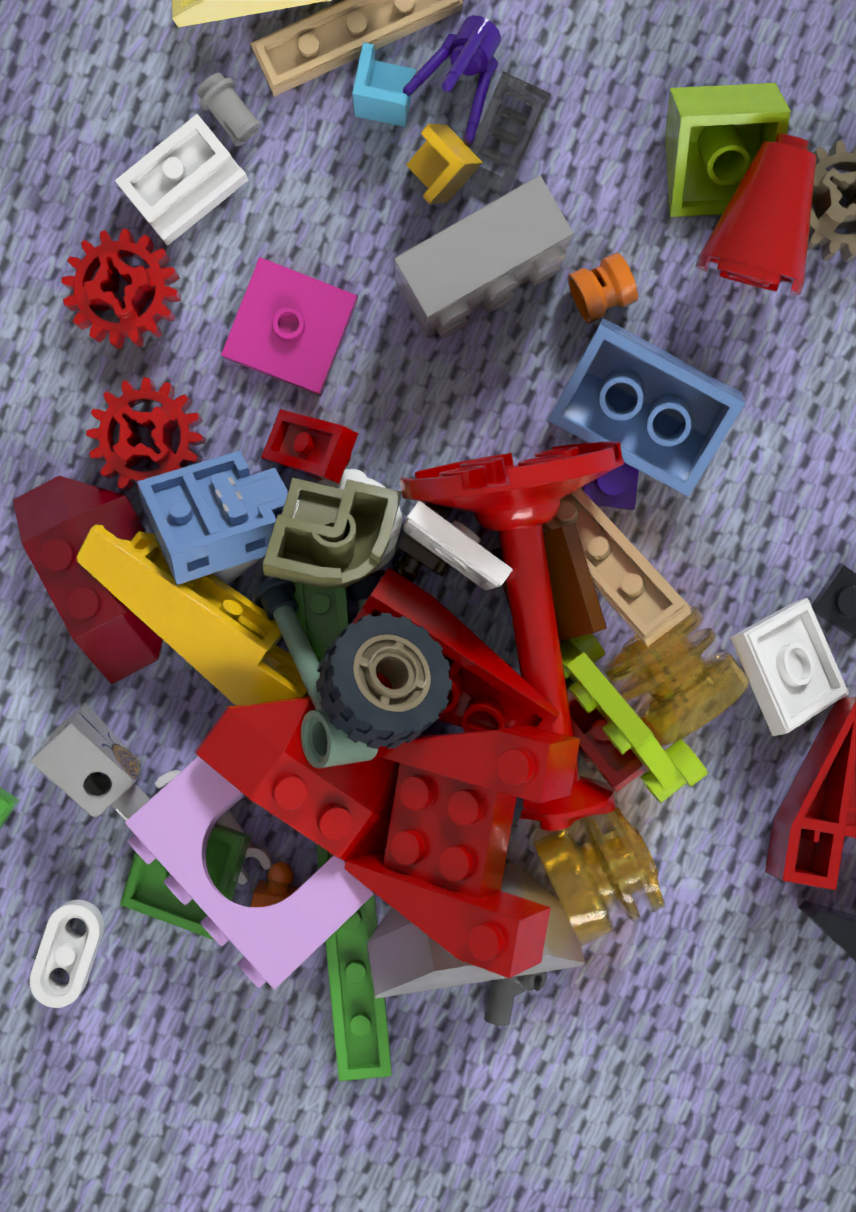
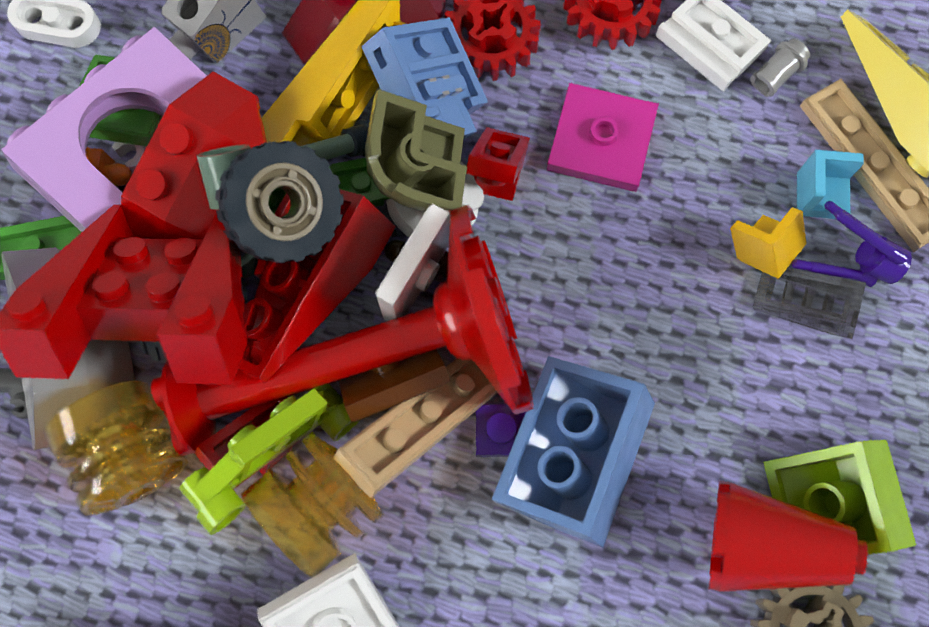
camera: 85 degrees right, 15 degrees down
(483, 259) = (688, 276): light grey brick -> none
(603, 287) = (682, 399): orange wheel -> none

